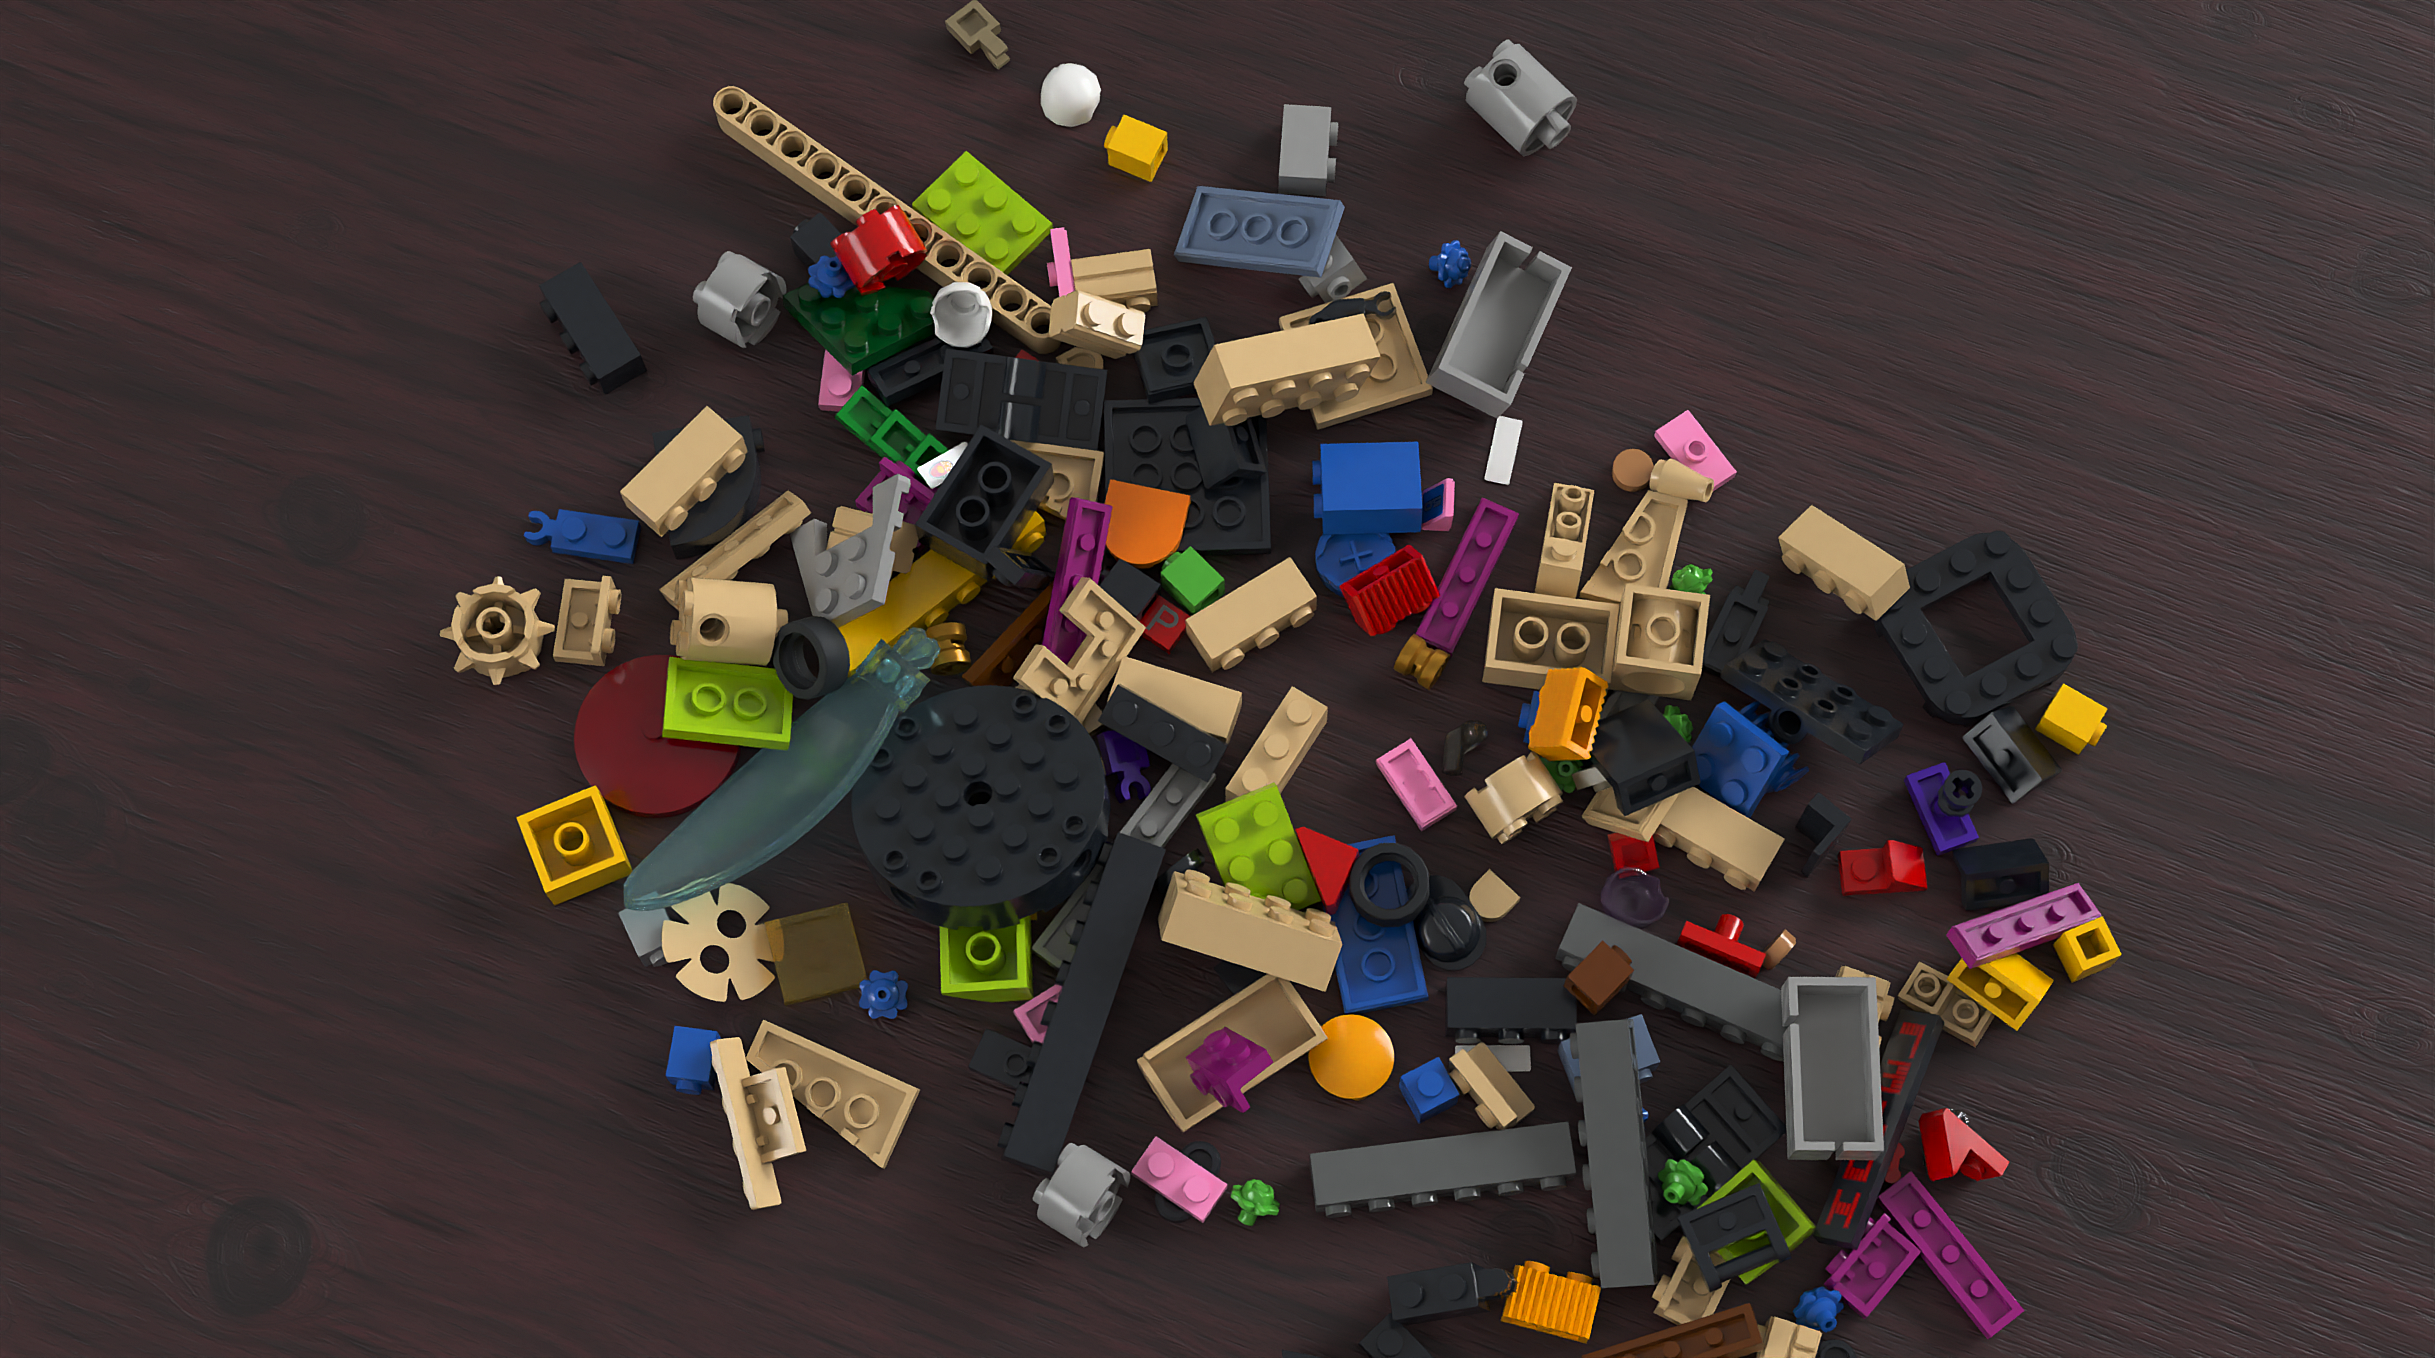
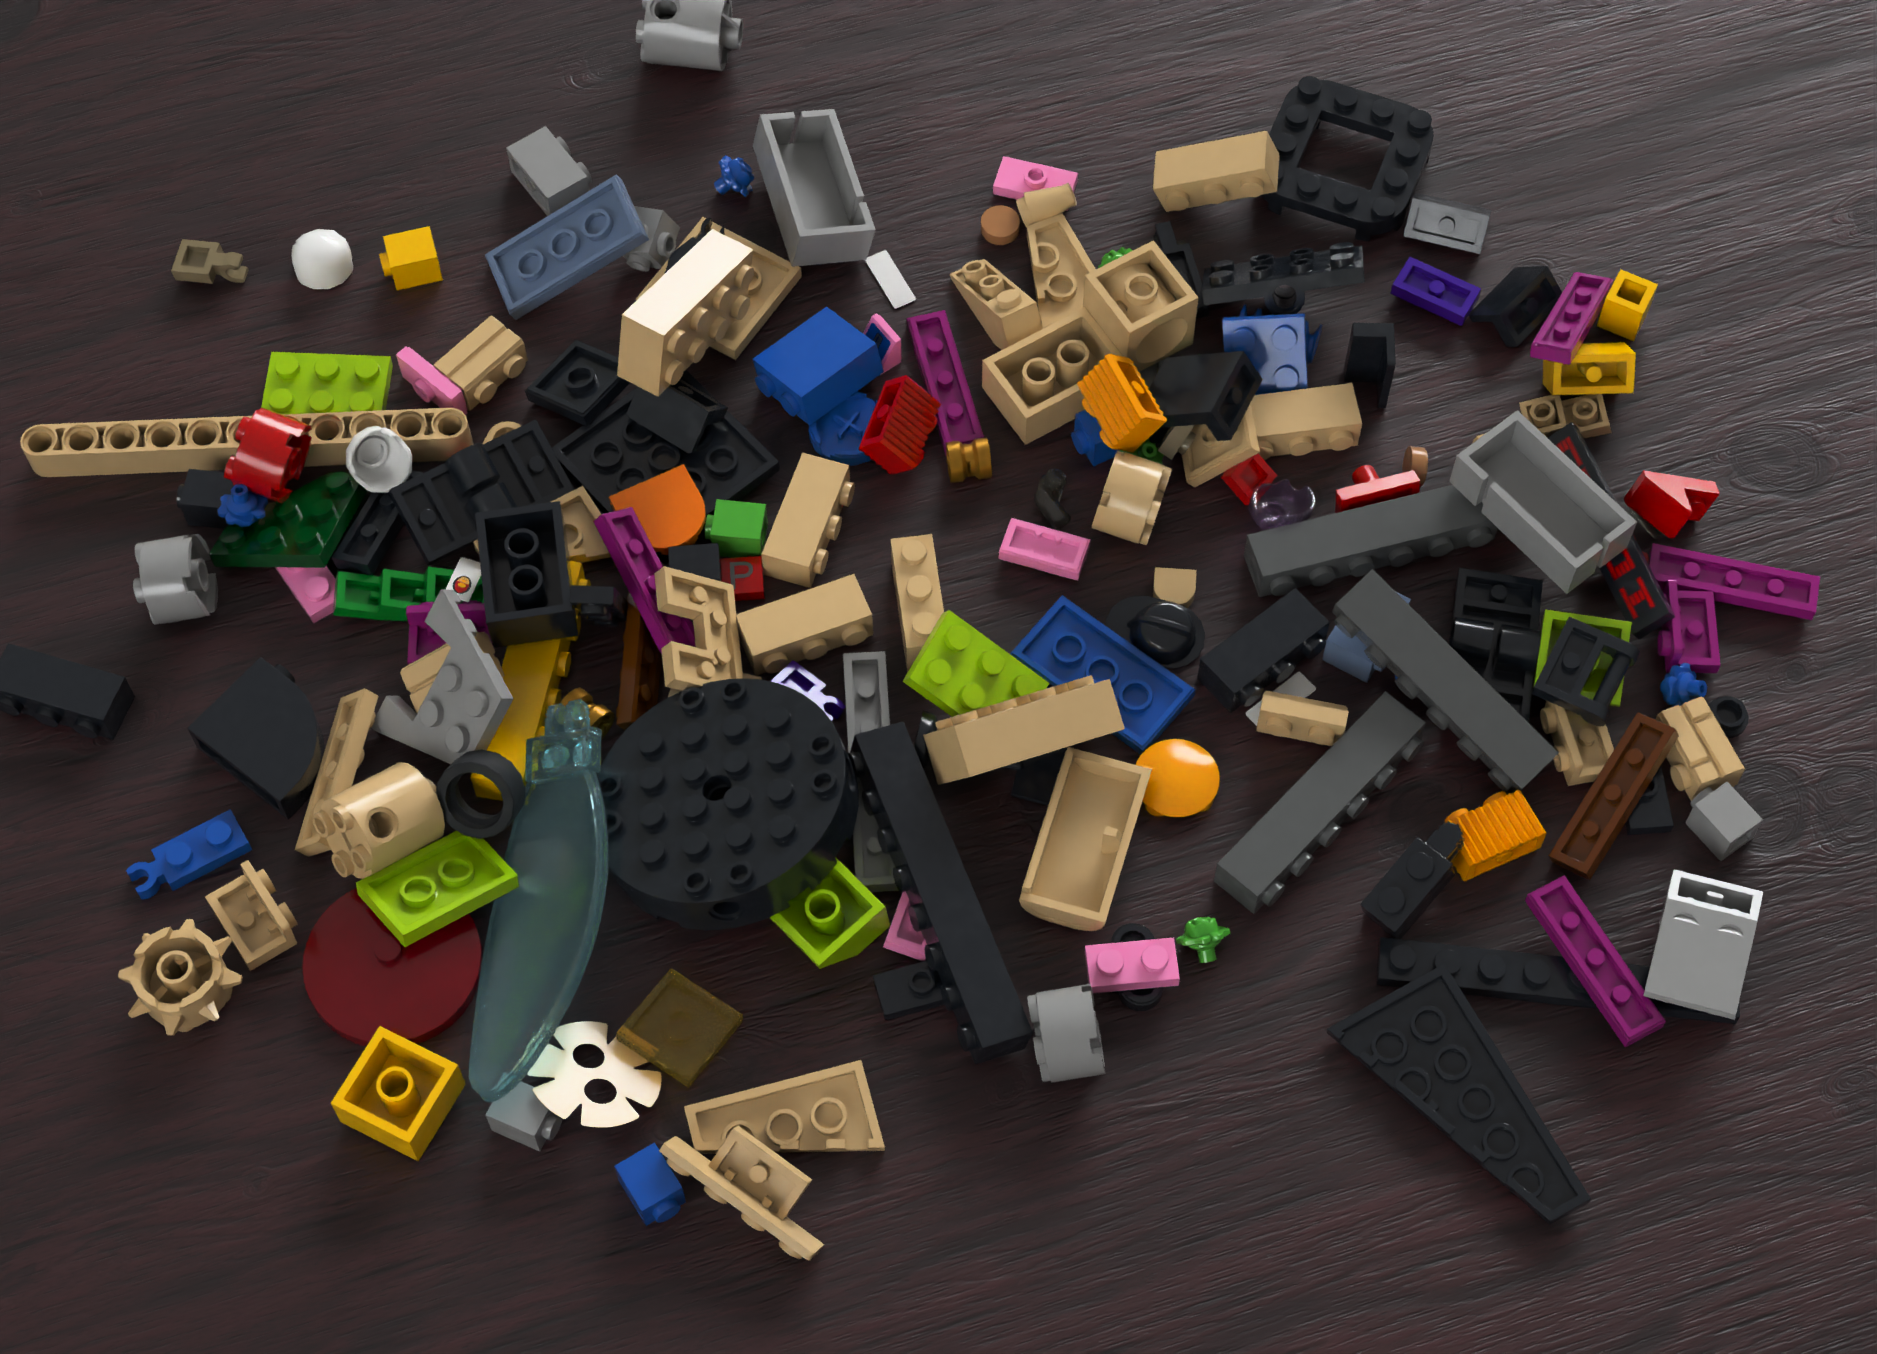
camera: 40 degrees left, 10 degrees down
(685, 472) = (246, 731): tan brick -> none
(883, 994) = (765, 1013): blue plant -> none
(1096, 324) = (496, 394): tan brick -> none
(1163, 732) = (819, 645): black plate -> none
(1225, 1065) = (1100, 844): magenta bracket -> none
(1328, 864) = (1037, 646): red slope -> none
(1379, 854) = (1095, 598): black tyre -> none
(1428, 1090) = (1259, 753): blue brick -> none
(1600, 976) = (1315, 568): reddish brown brick -> none
(1682, 1182) = (1508, 667): bright green plant -> none
(1882, 870) = (1433, 363): red slope -> none
(1963, 805) = (1444, 258): black bush -> none
(2072, 720) = (1467, 168): yellow brick -> none

